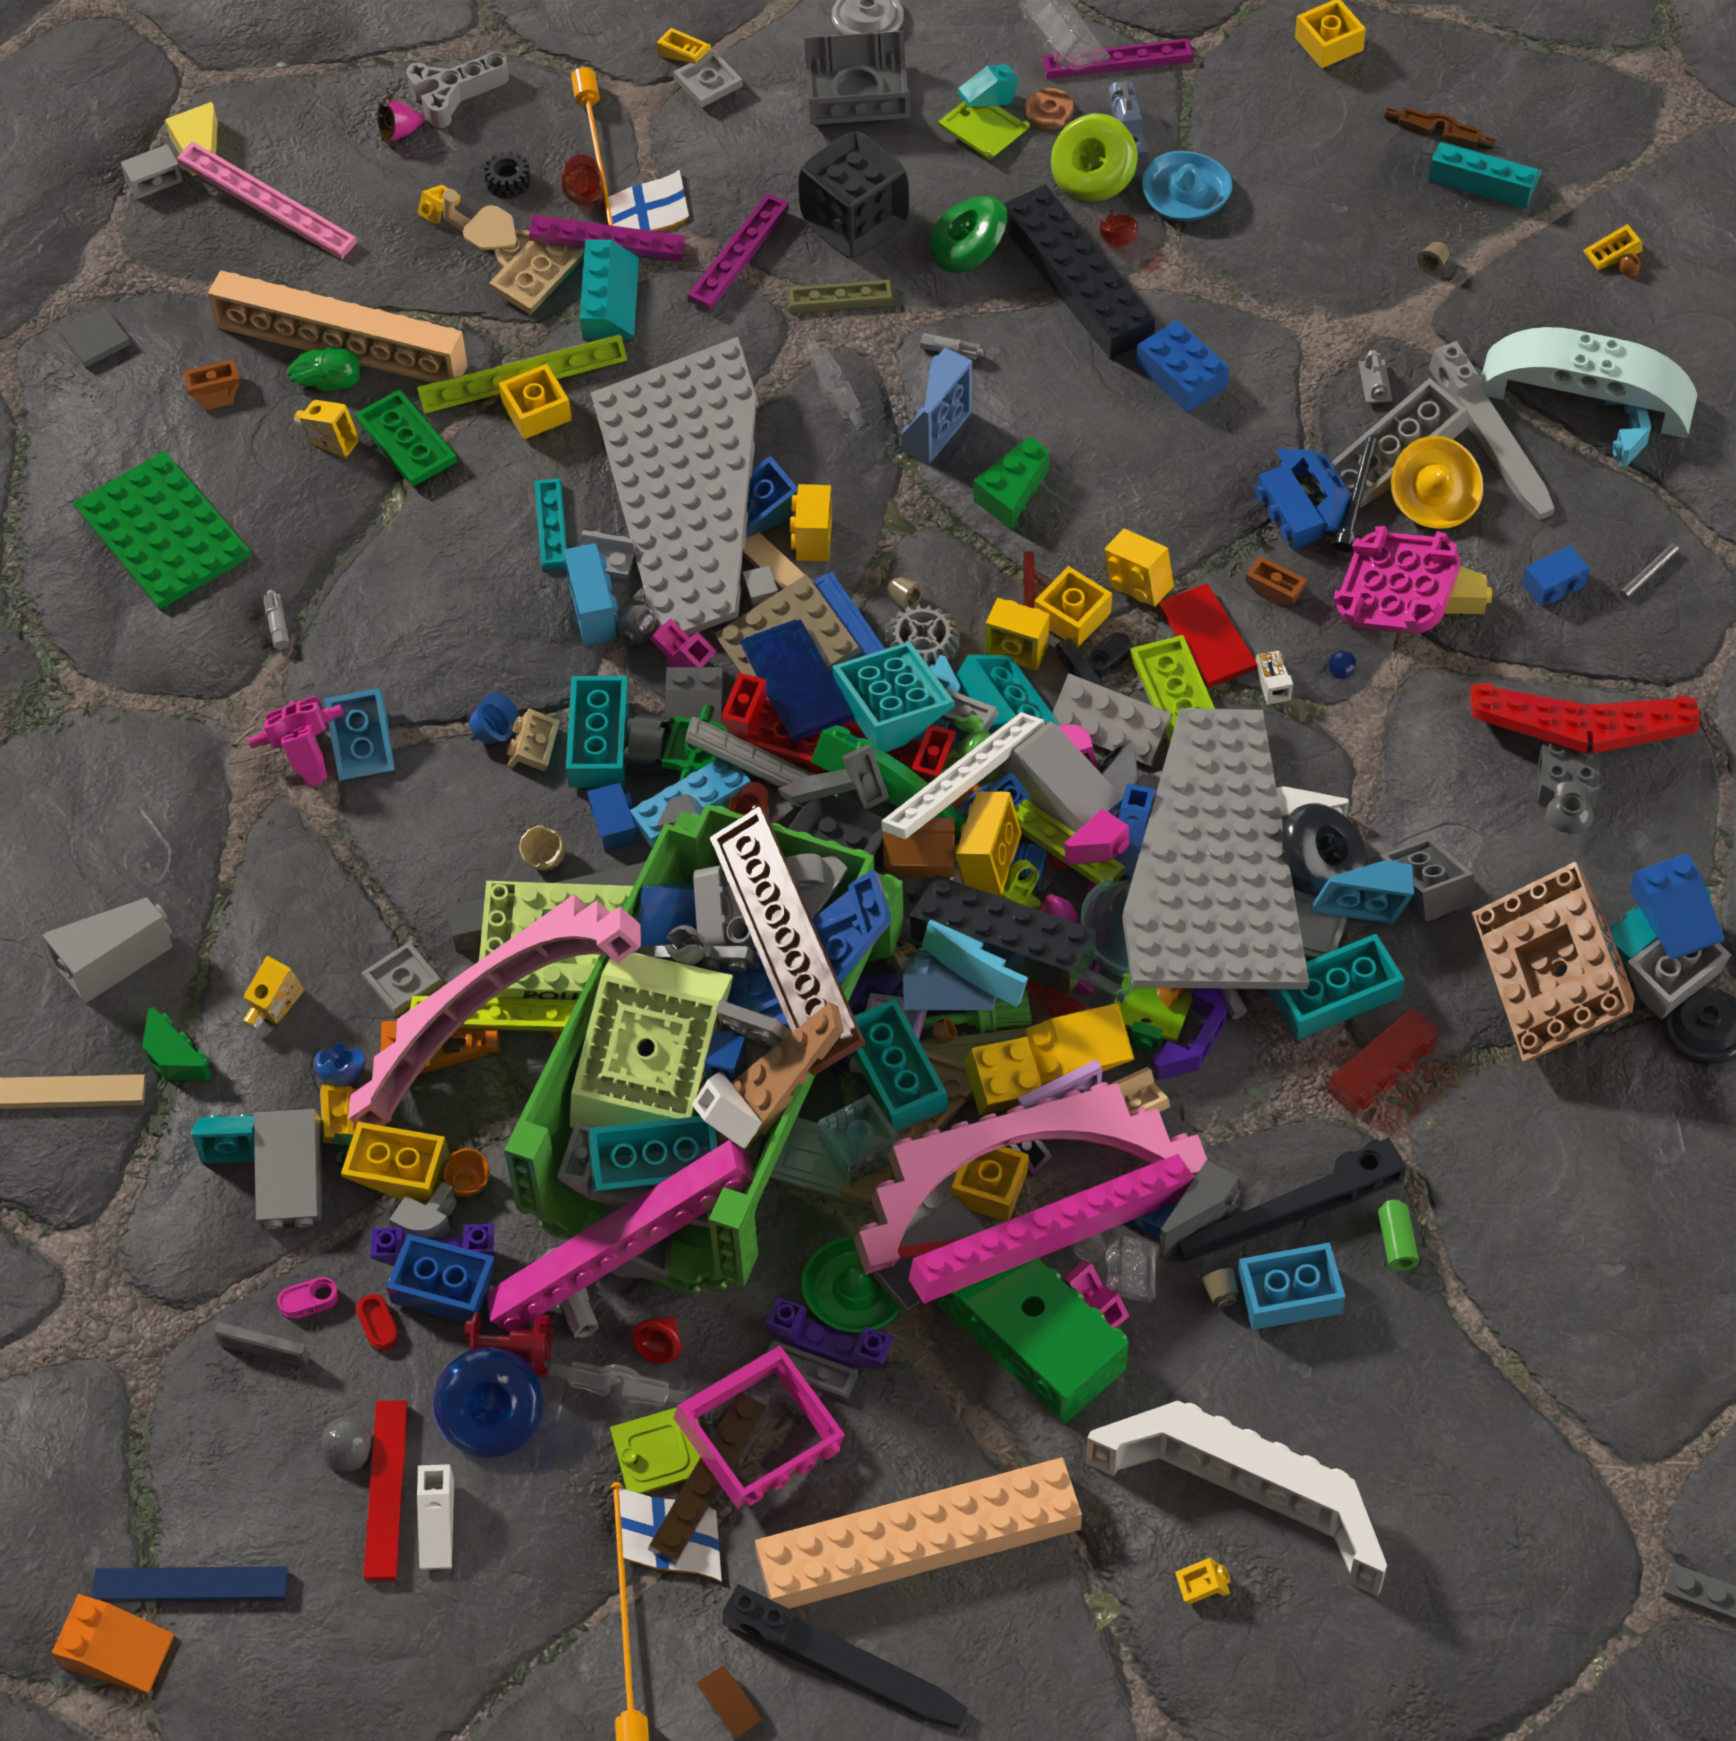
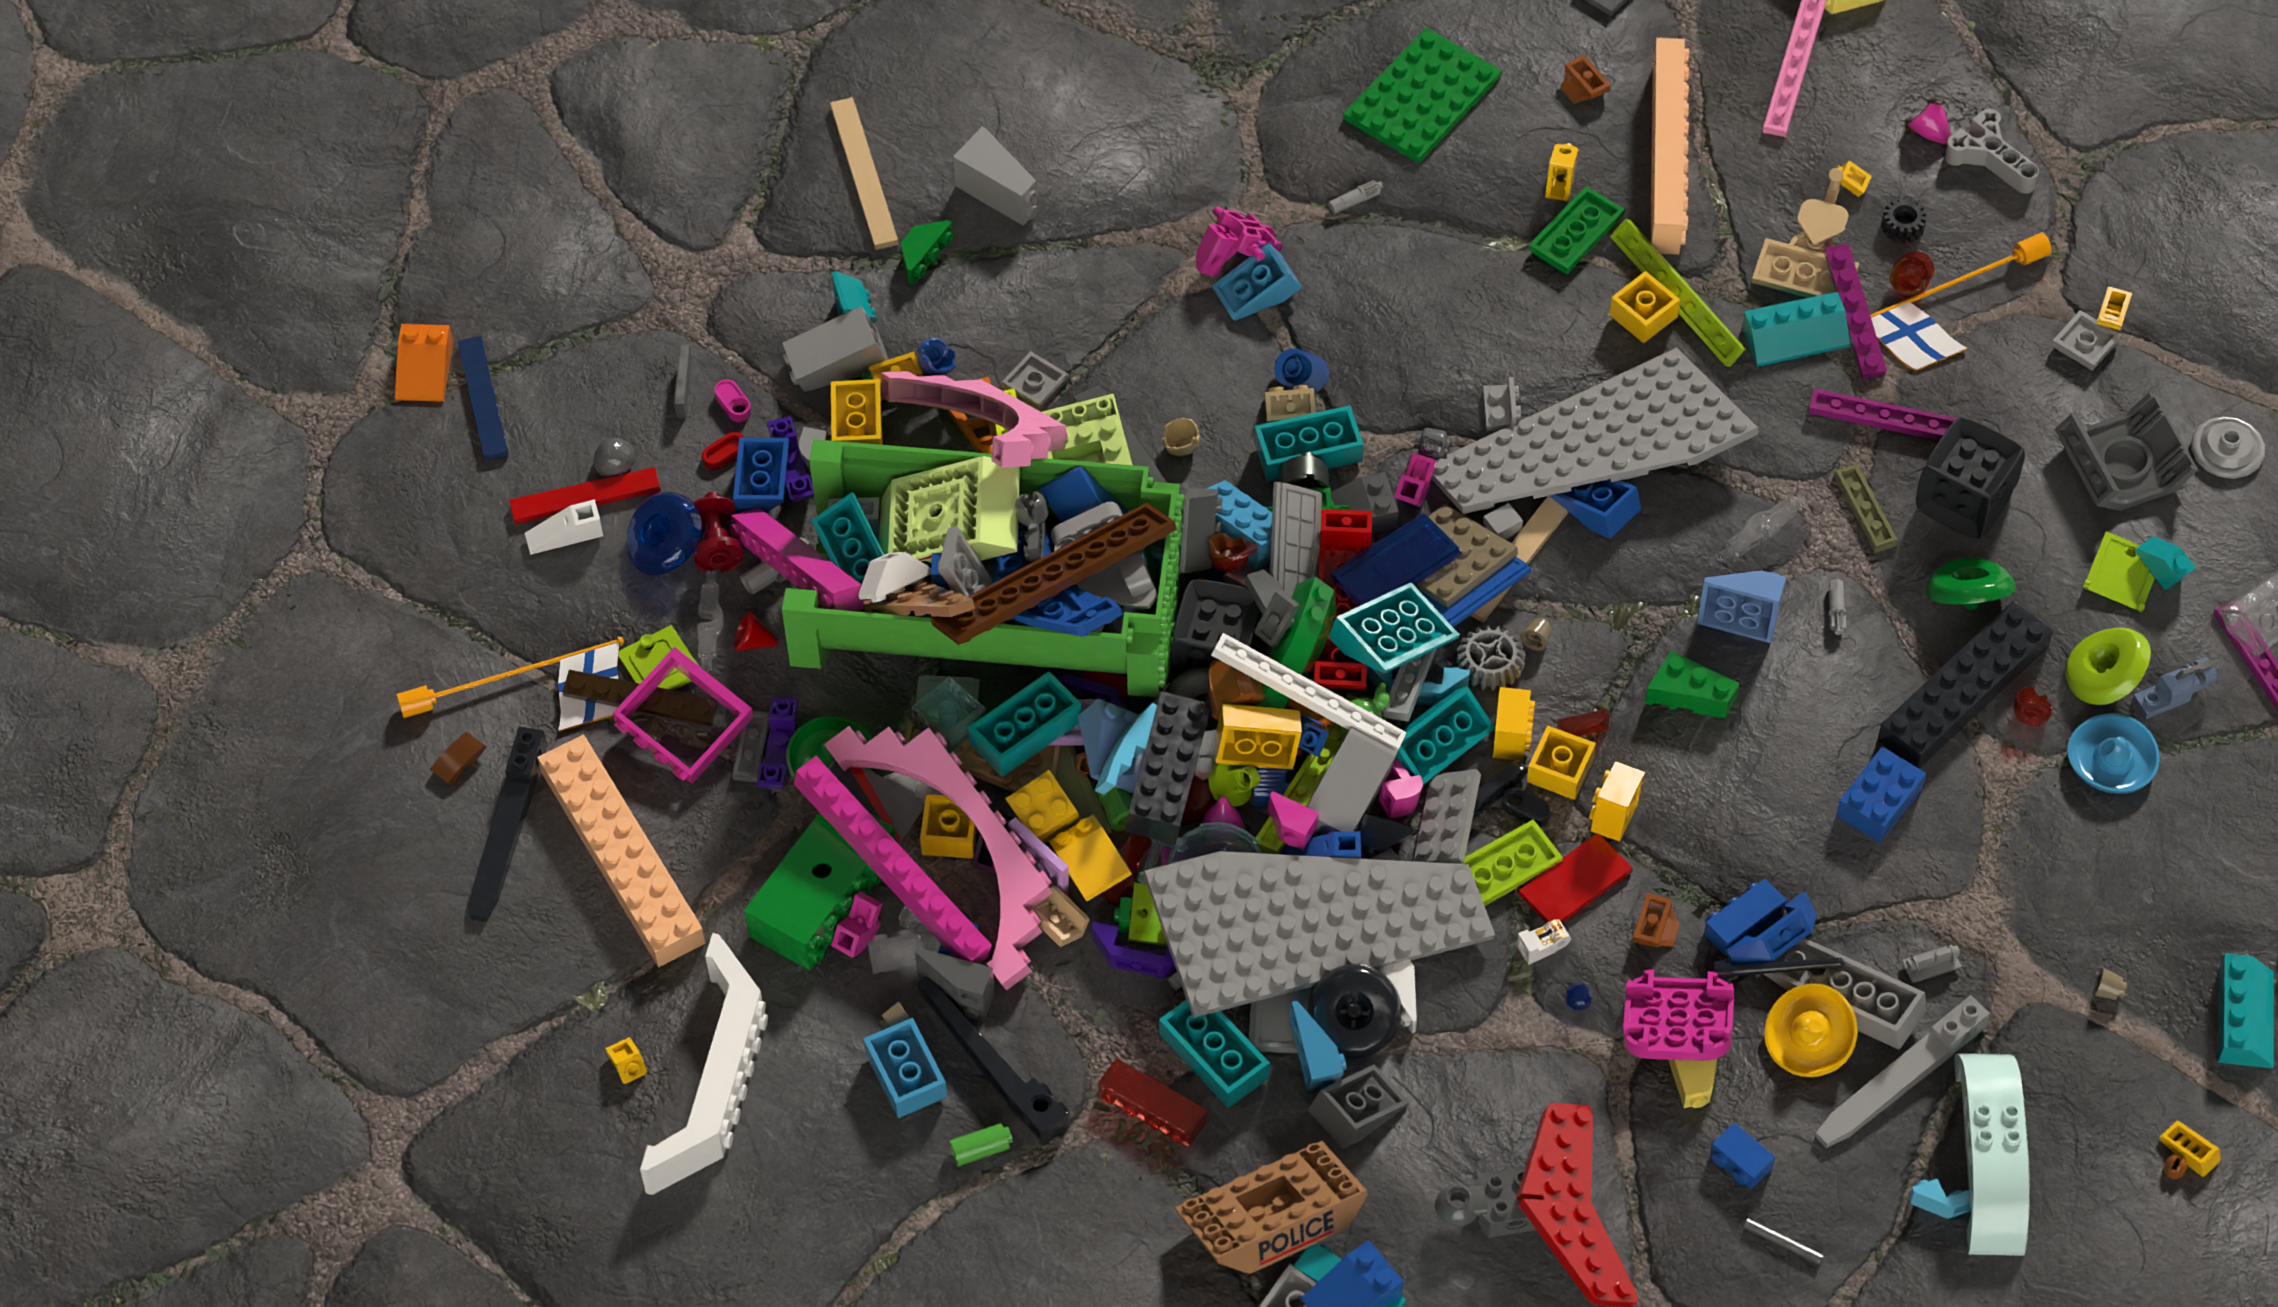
camera: 75 degrees right, 0 degrees up
(271, 993) = (988, 295): yellow torso -> none
(326, 369) = (1628, 153): green hair -> none
(551, 523) = (1524, 359): teal tile -> none
(591, 594) = (1446, 398): dark azure brick -> none
(612, 816) = (1235, 470): blue brick -> none
(811, 523) = (1581, 542): yellow brick -> none
(1049, 109) = (2171, 622): nougat tile -> none

